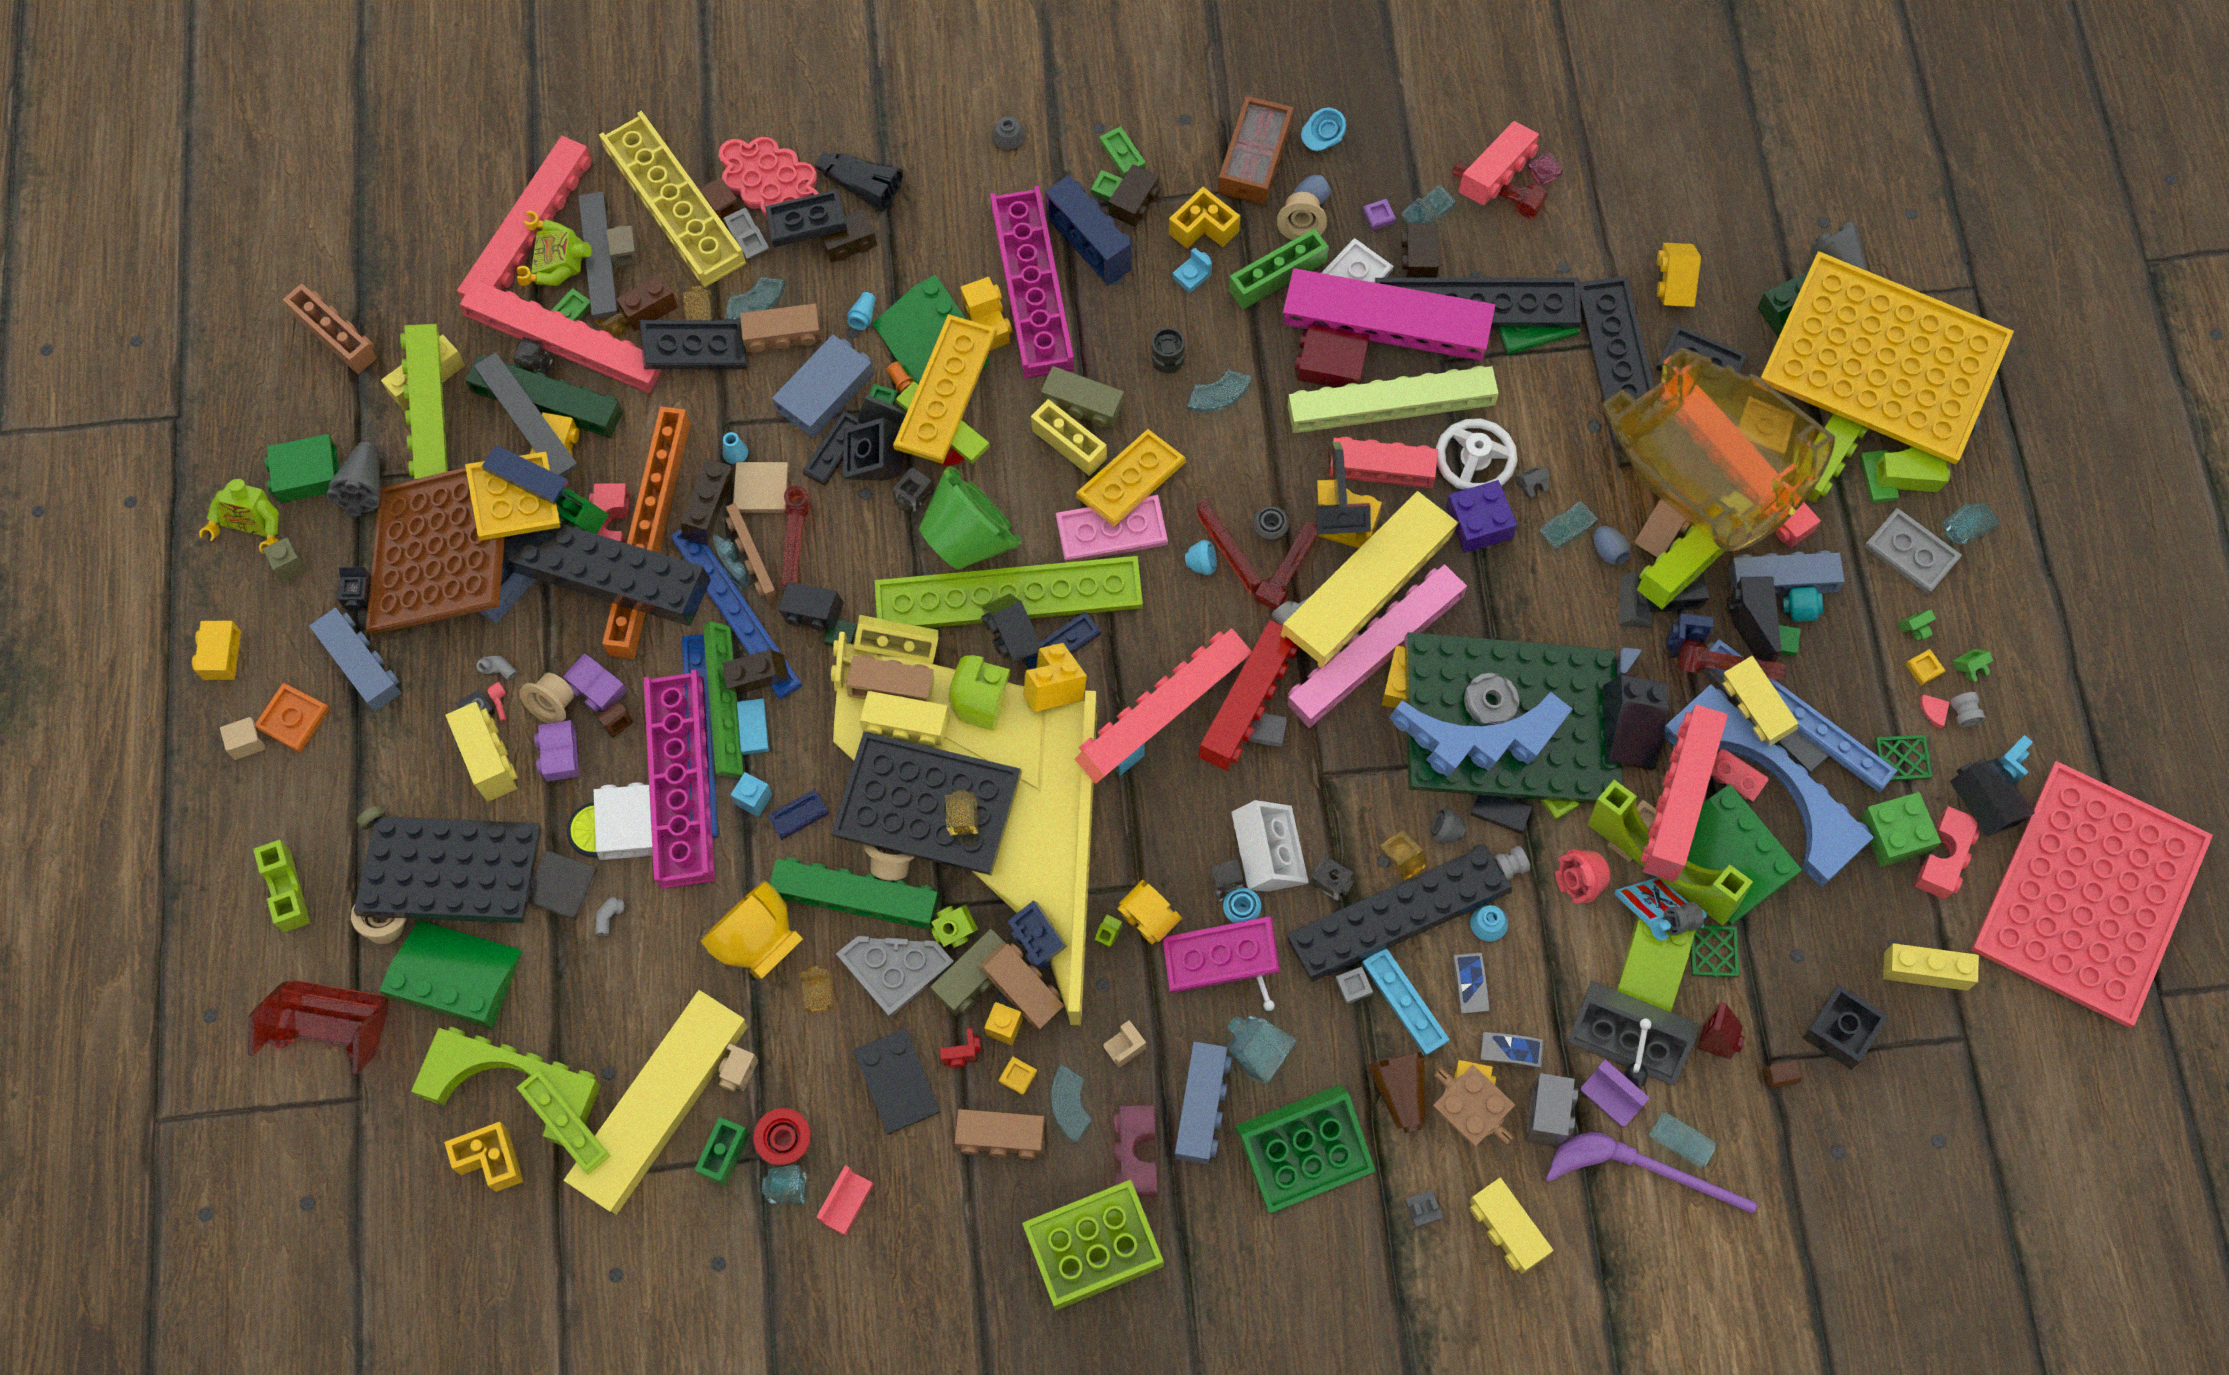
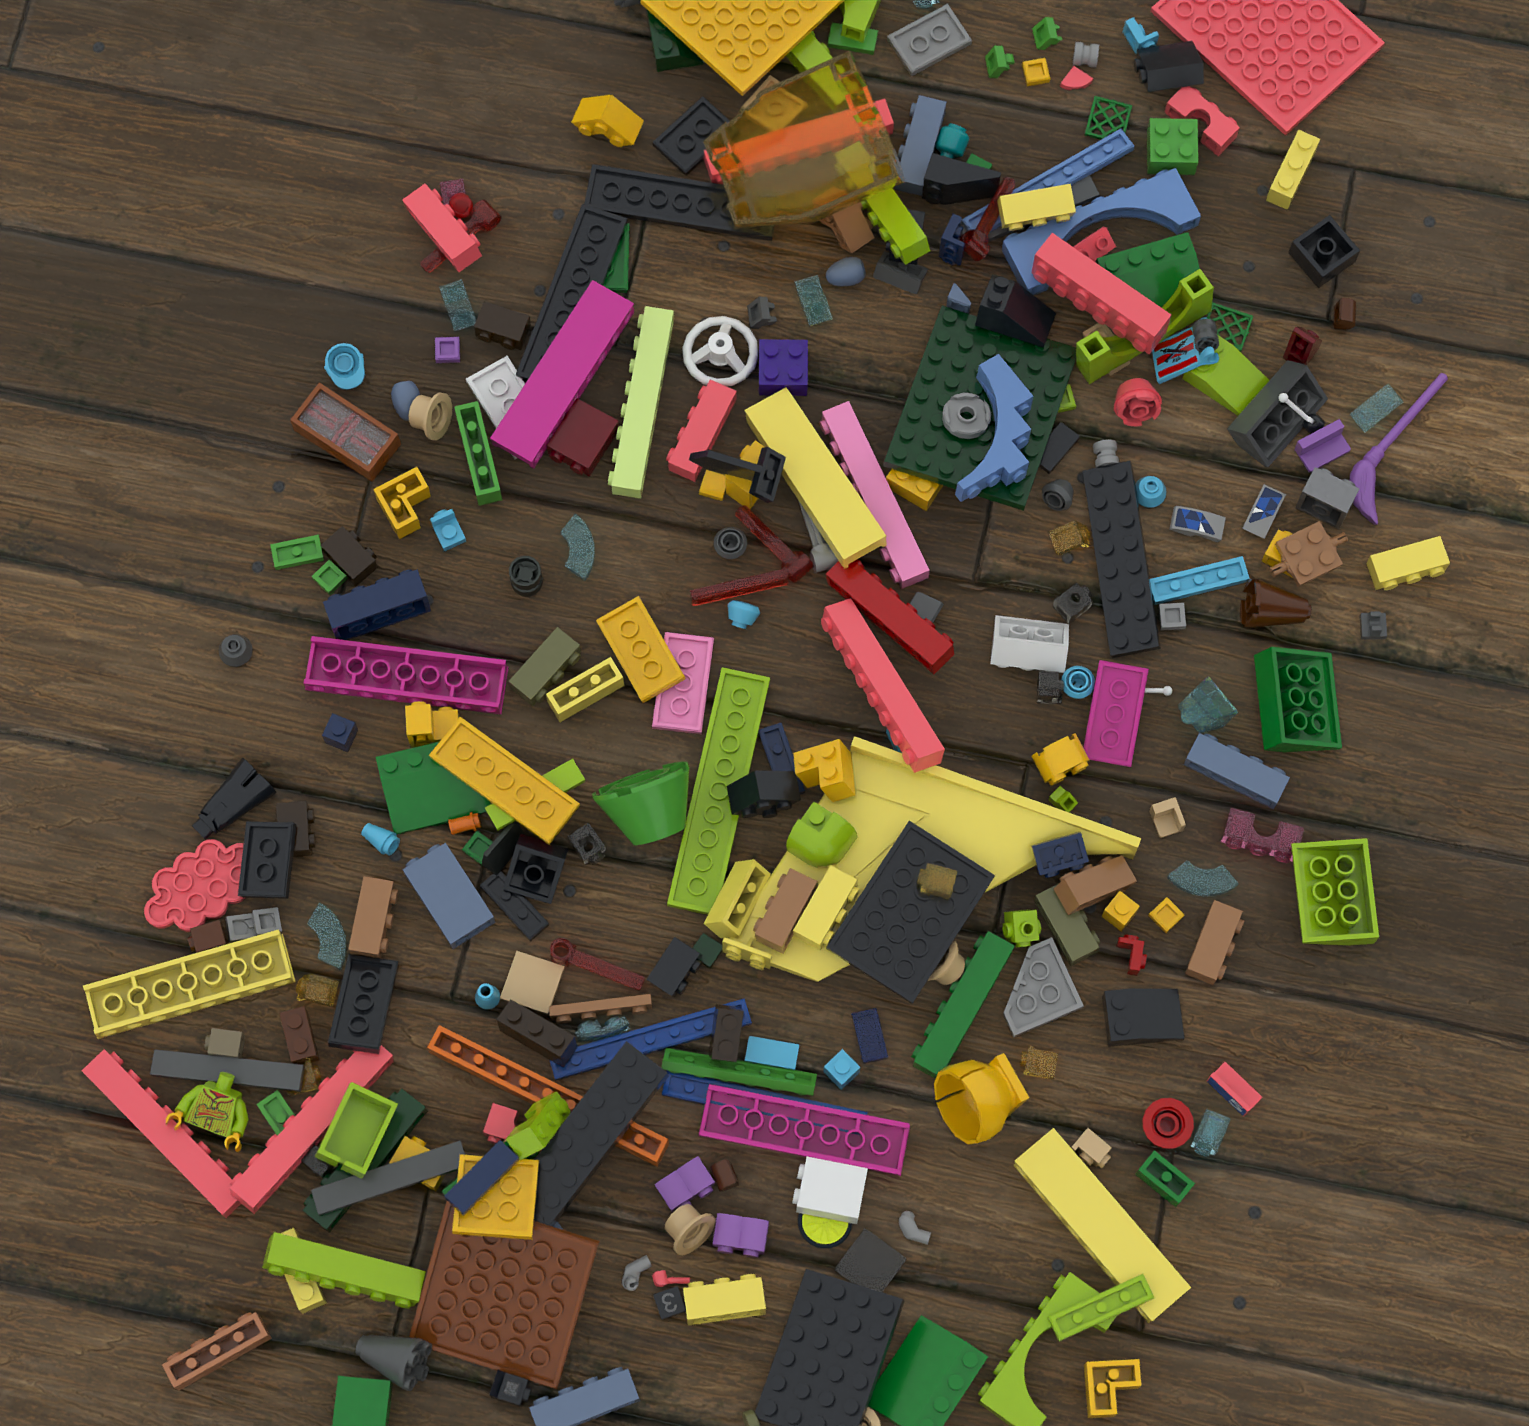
camera: 75 degrees left, 5 degrees up
(556, 365) = (356, 1130): none -> lime piece
(592, 514) = (542, 1123): none -> lime arch
(954, 242) = (340, 732): none -> dark blue brick
(1532, 174) = (461, 205): none -> red tile

